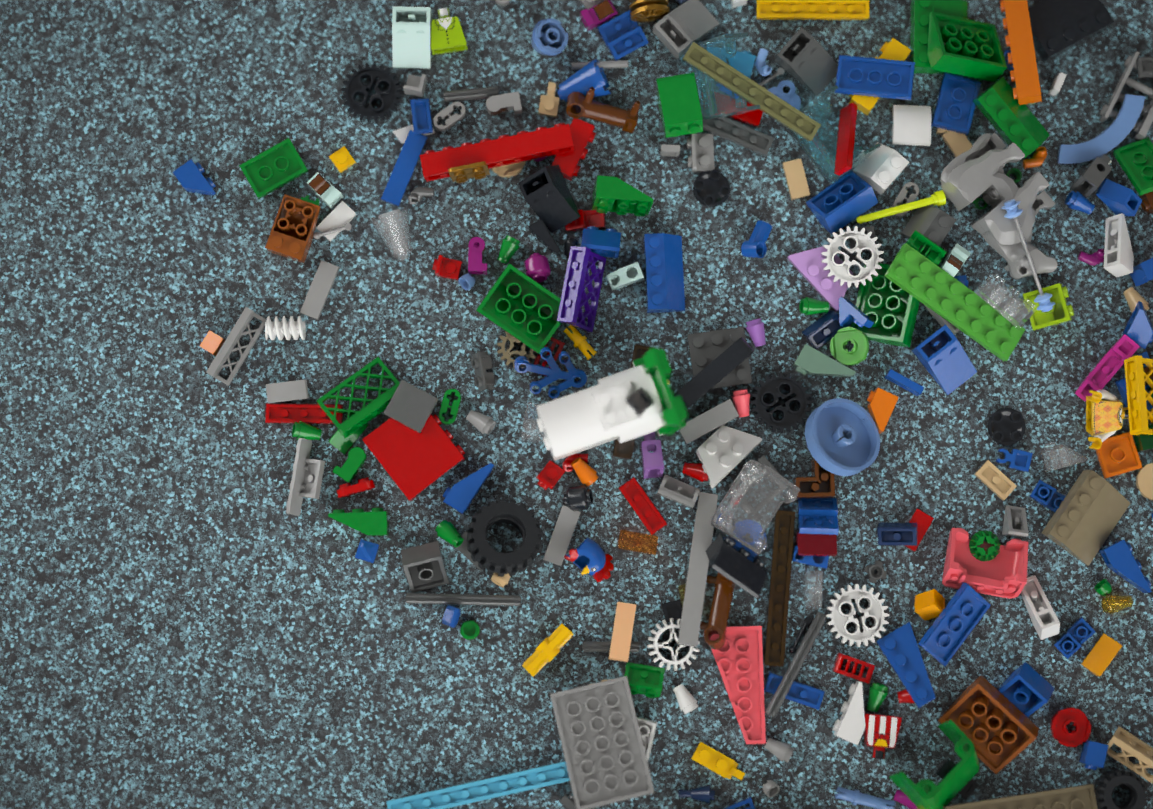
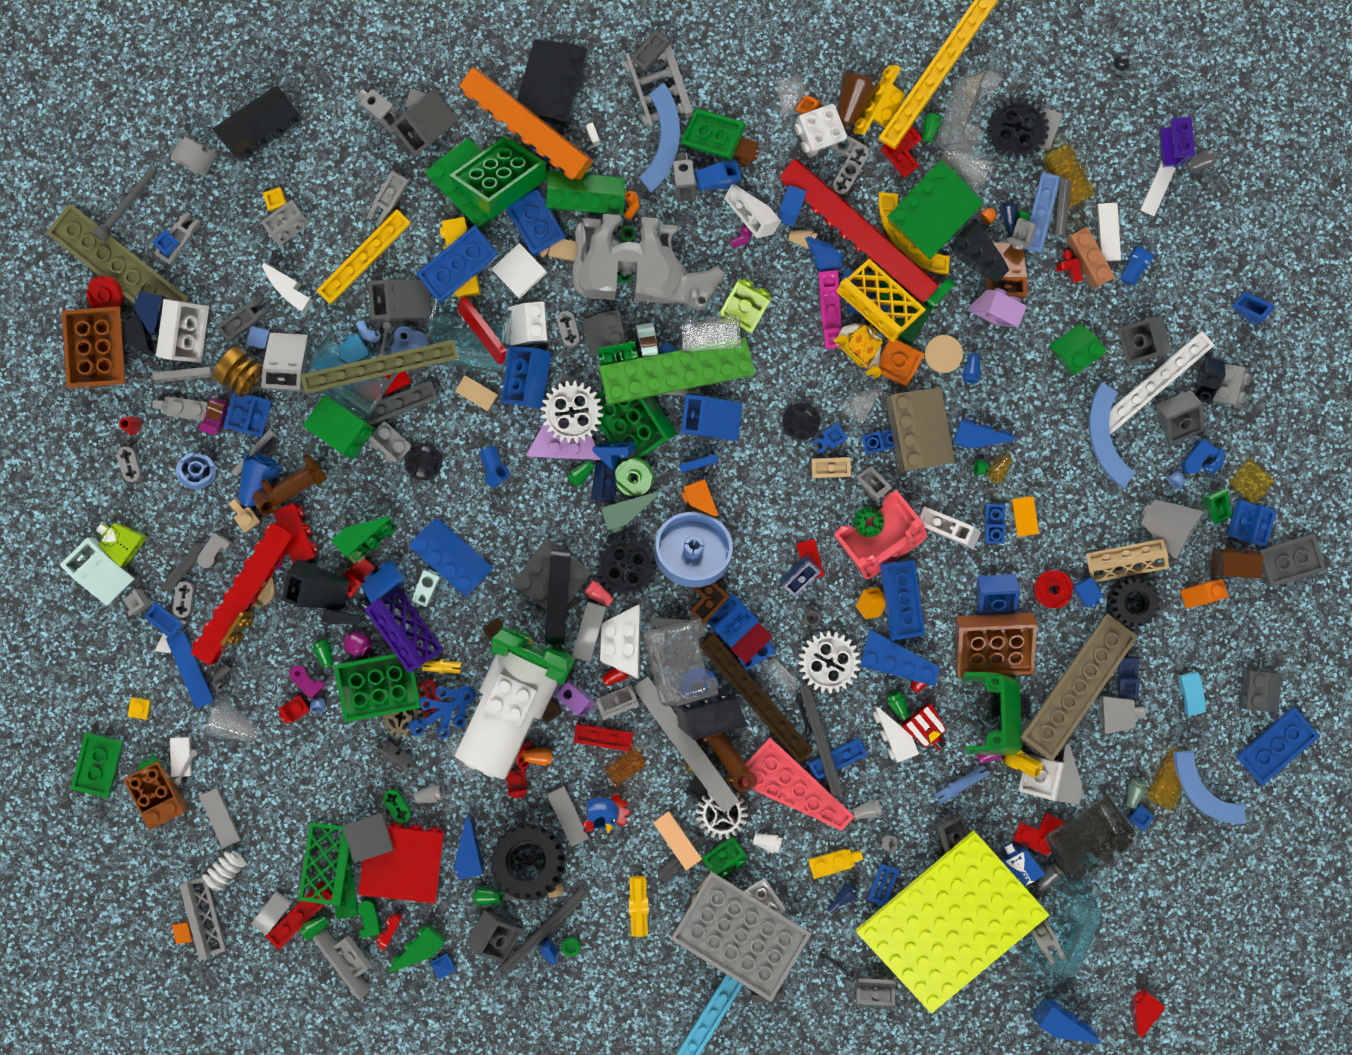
camera: 40 degrees left, 5 degrees up
(192, 179) = (47, 831): blue slope -> none
(325, 190) = (150, 743): leg -> none
(355, 87) = (95, 647): black gear -> none
(578, 497) = (552, 778): black head -> none
(639, 401) = (523, 682): black tile -> none
(670, 150) = (366, 464): light grey tile -> none
(756, 331) = (558, 532): medium lavender cone -> none
(838, 663) = (851, 712): red slope -> none
(937, 198) = (590, 307): neon yellow piece -> none
(1013, 212) = (653, 267): light blue axle -> none
(1078, 202) = (693, 206): blue cone -> none

